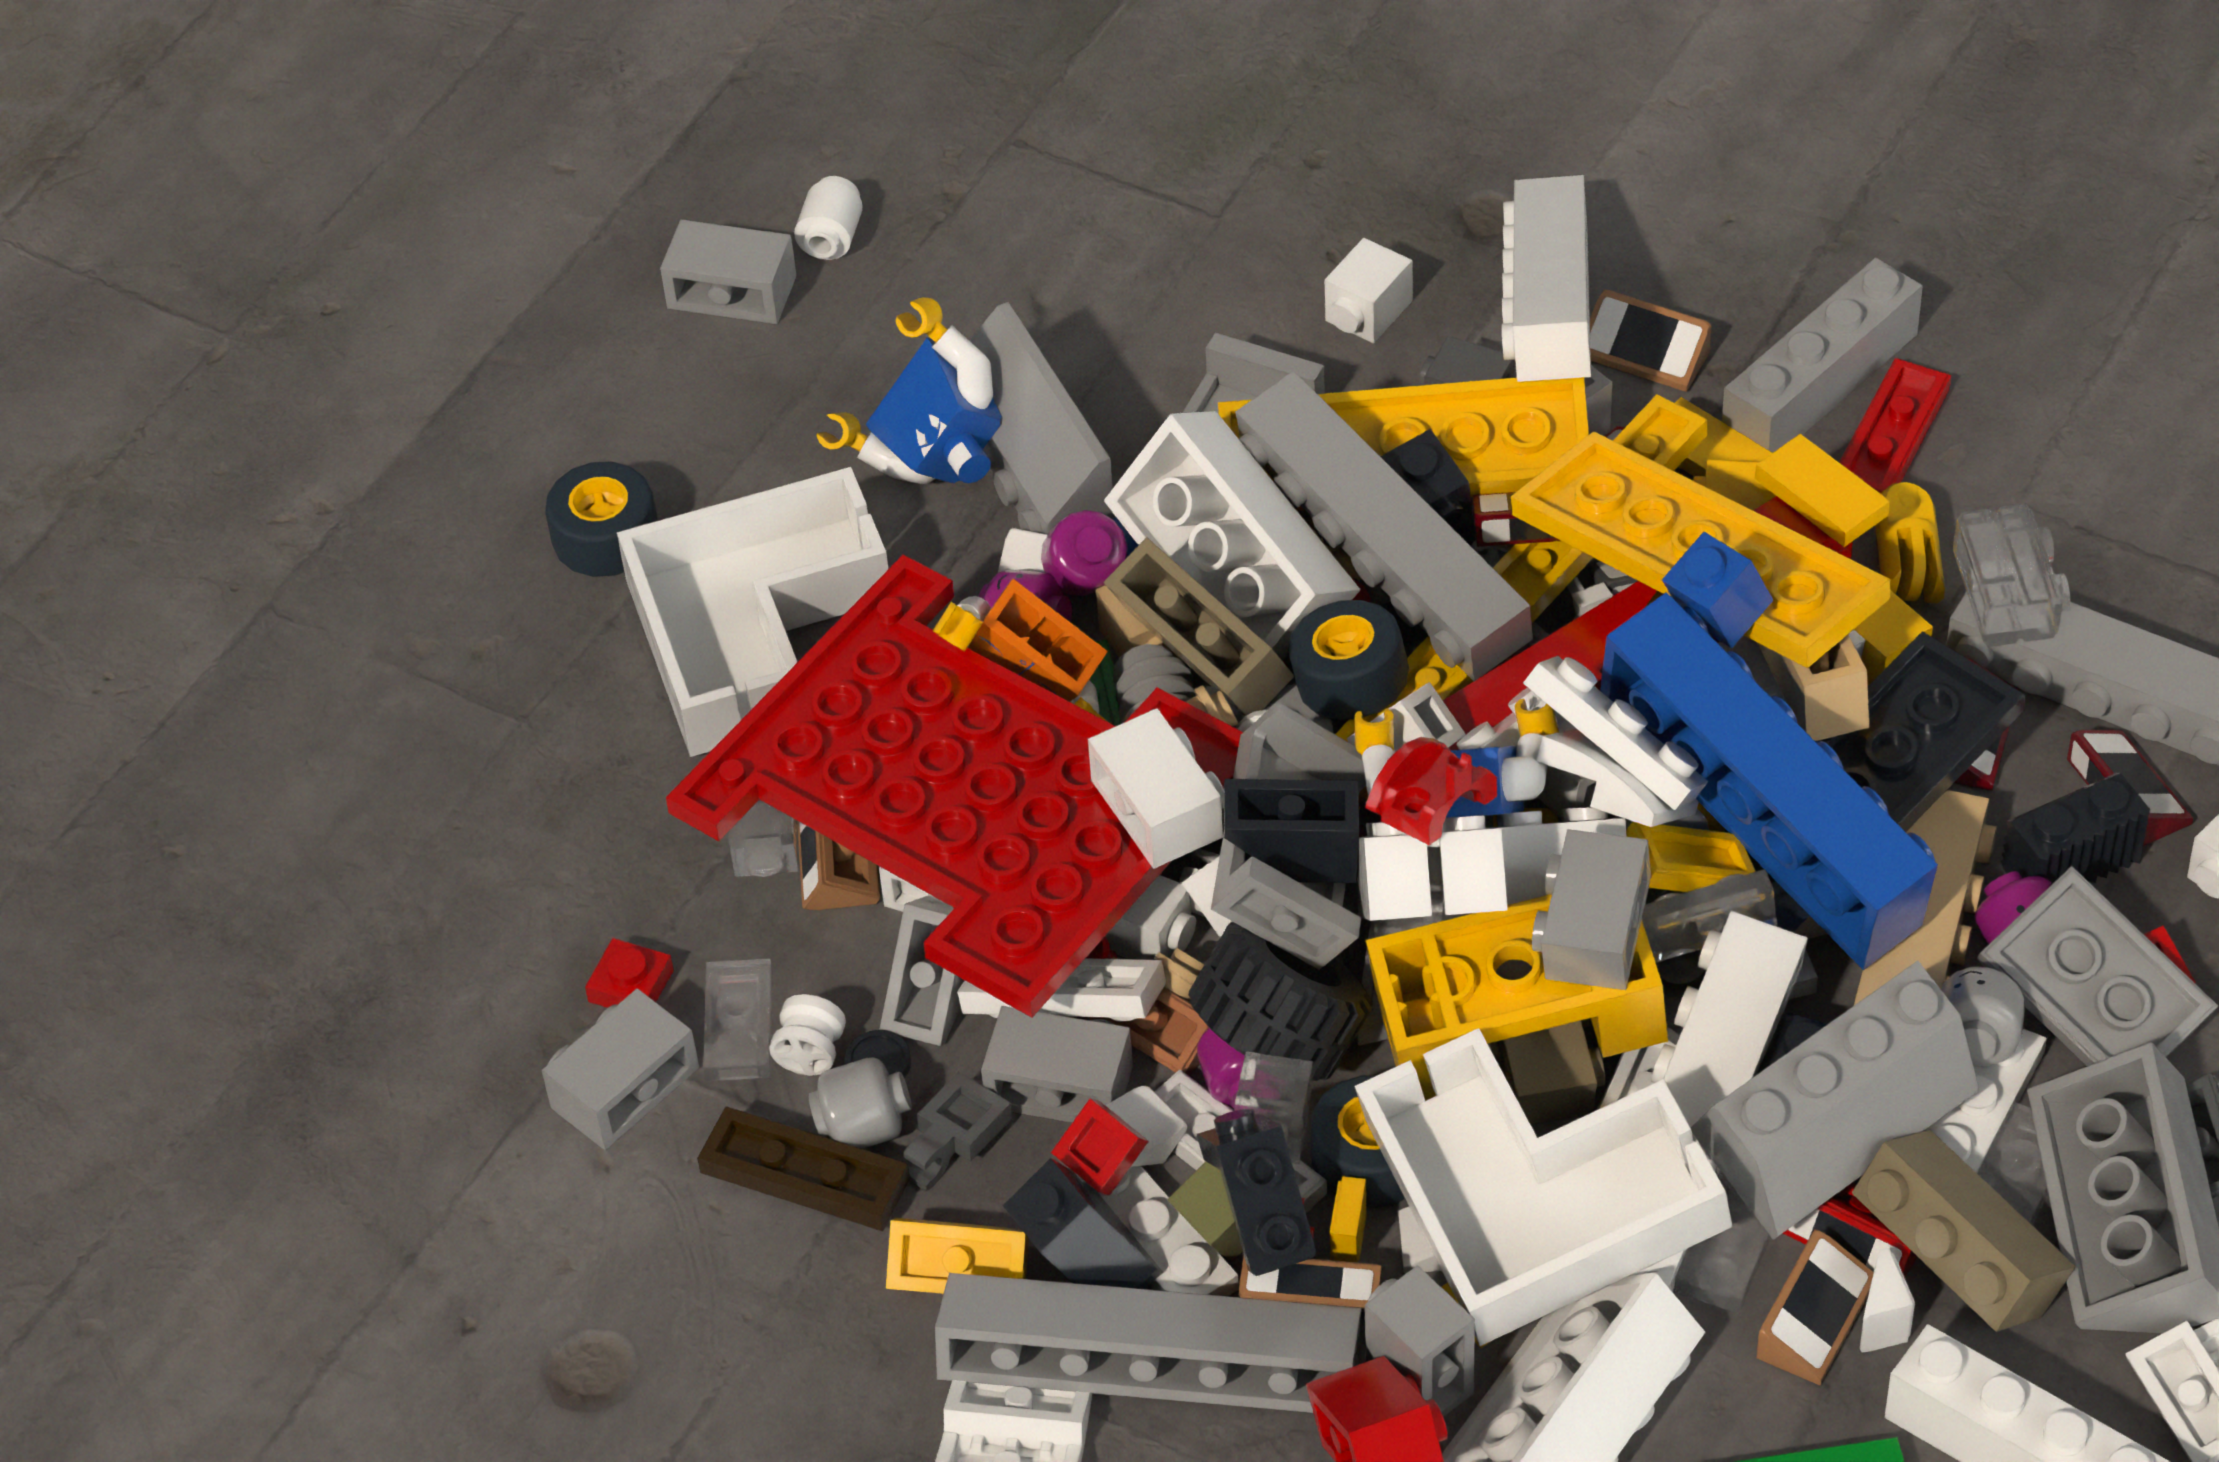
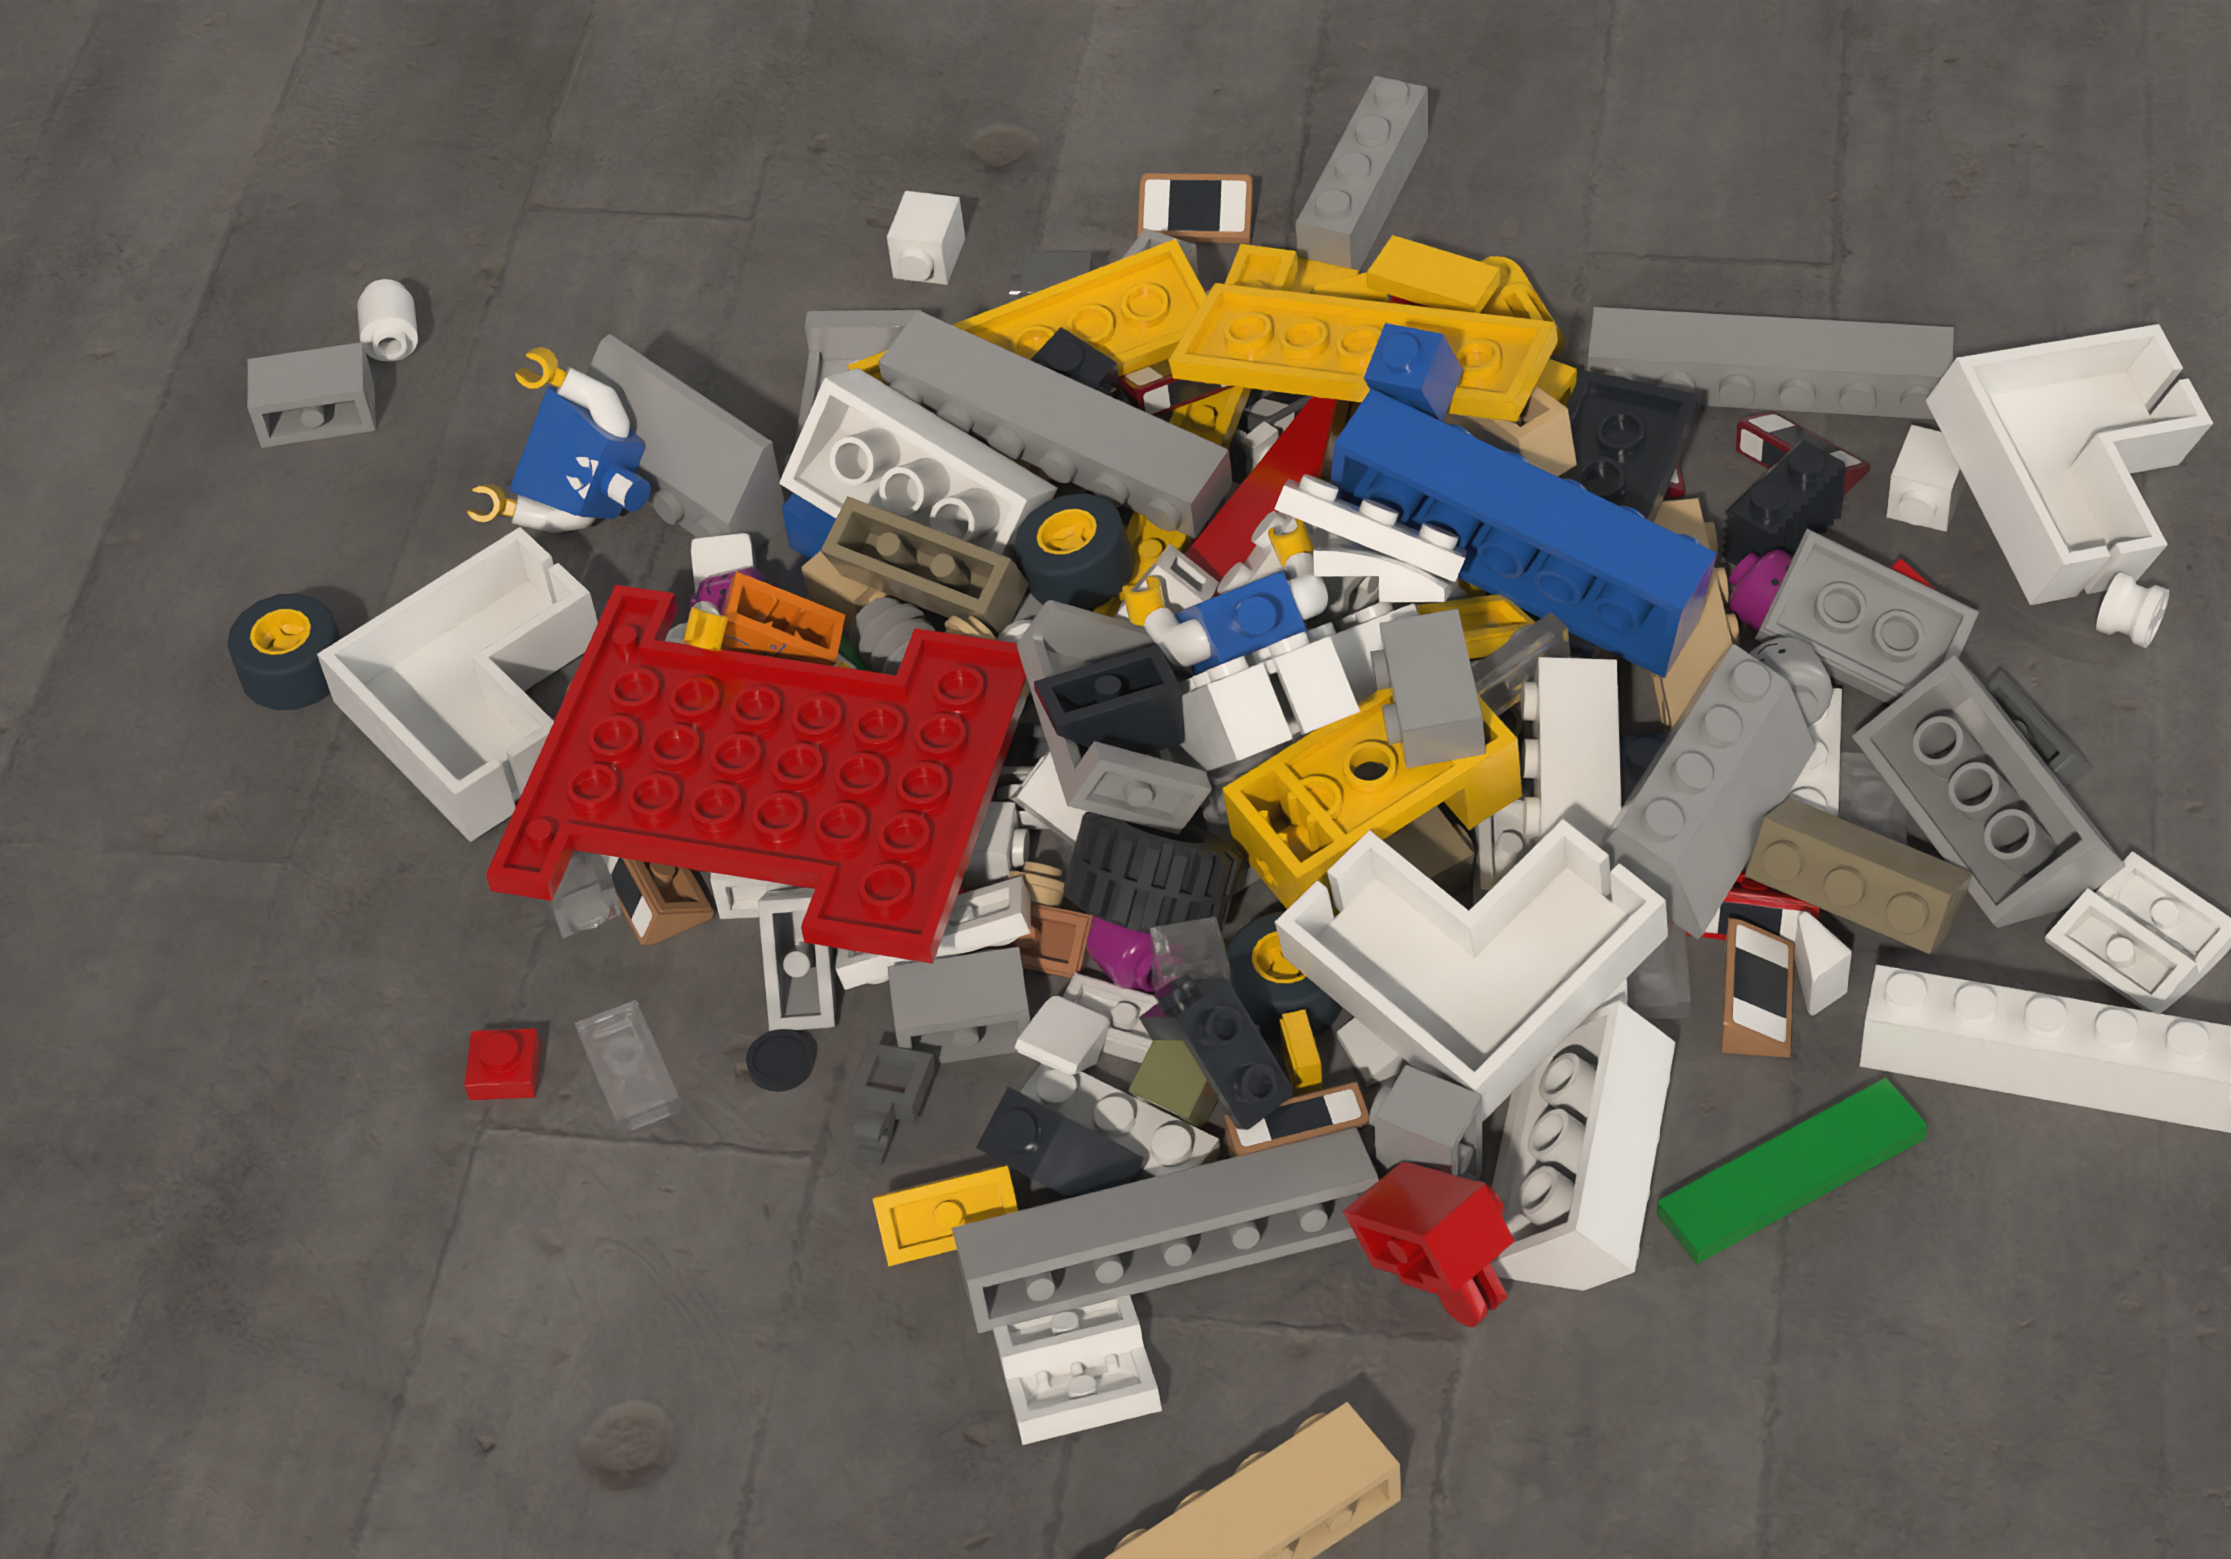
camera: 20 degrees left, 0 degrees up
(620, 1068) = (534, 1149): light grey brick -> none
(804, 1168) = (757, 1182): dark brown plate -> none
(807, 1034) = (705, 1057): white wheel -> none
(860, 1103) = (787, 1104): light grey head -> none
(1083, 551) = (777, 537): magenta head -> none
(1099, 1147) = (1044, 1062): red plate -> none
(1157, 787) = (963, 714): white brick -> none
(1423, 784) = (1245, 621): red piece -> none
(1546, 279) = (1099, 173): white brick -> none
(1895, 423) = (1449, 205): red tile -> none
(2010, 574) = (1628, 302): clear brick -> none

